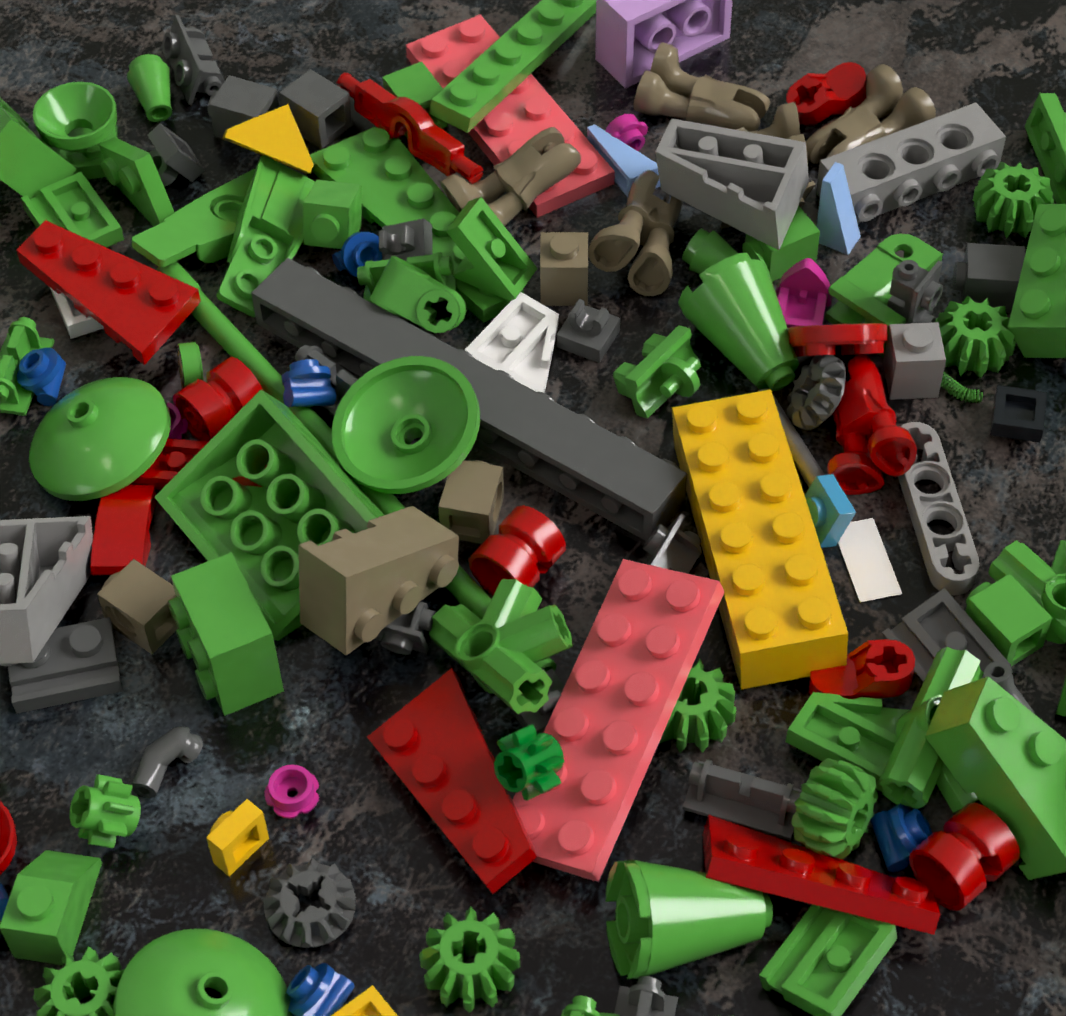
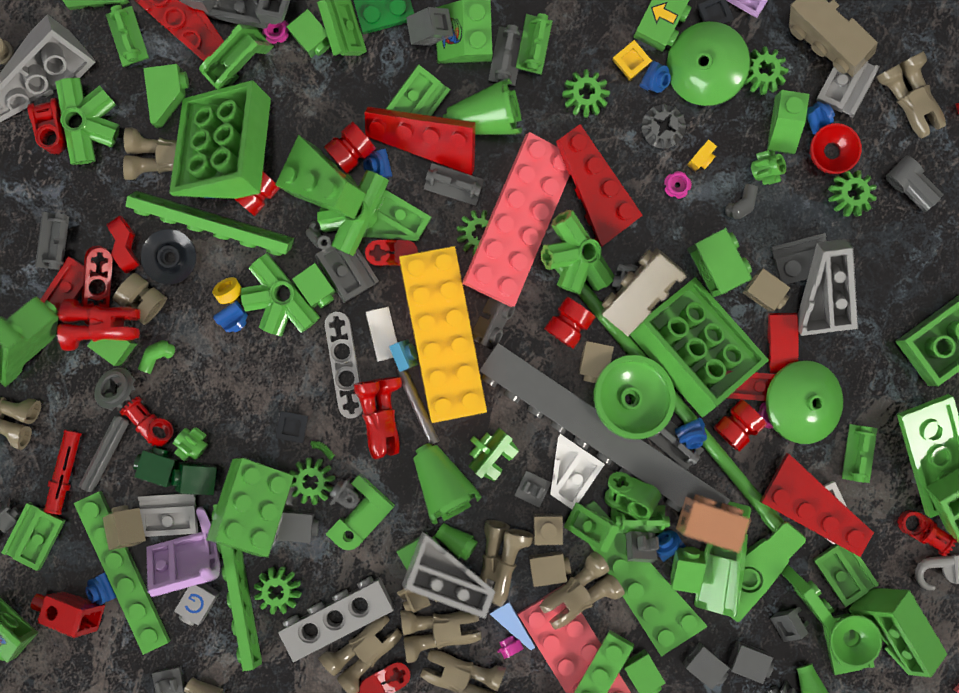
camera: 175 degrees right, 35 degrees up
(43, 374) = (844, 449): blue plate -> none
(189, 363) = (760, 455): bright green tile -> none
(274, 136) = (731, 627): yellow slope -> none
(288, 231) = (713, 524): none -> nougat brick
(405, 115) = (652, 649): red piece -> none
(528, 762) = (561, 180): green gear -> none
(562, 212) = (549, 568): none -> dark tan brick
(804, 294) = (408, 508): dark pink tile -> none
(816, 392) = (399, 443): dark grey gear -> none
(834, 808) = (410, 169): bright green gear -> none
(836, 212) = (383, 571): light blue piece -> none
(852, 338) = (391, 468): red tile -> none
(914, 360) = (347, 460): light grey brick -> none

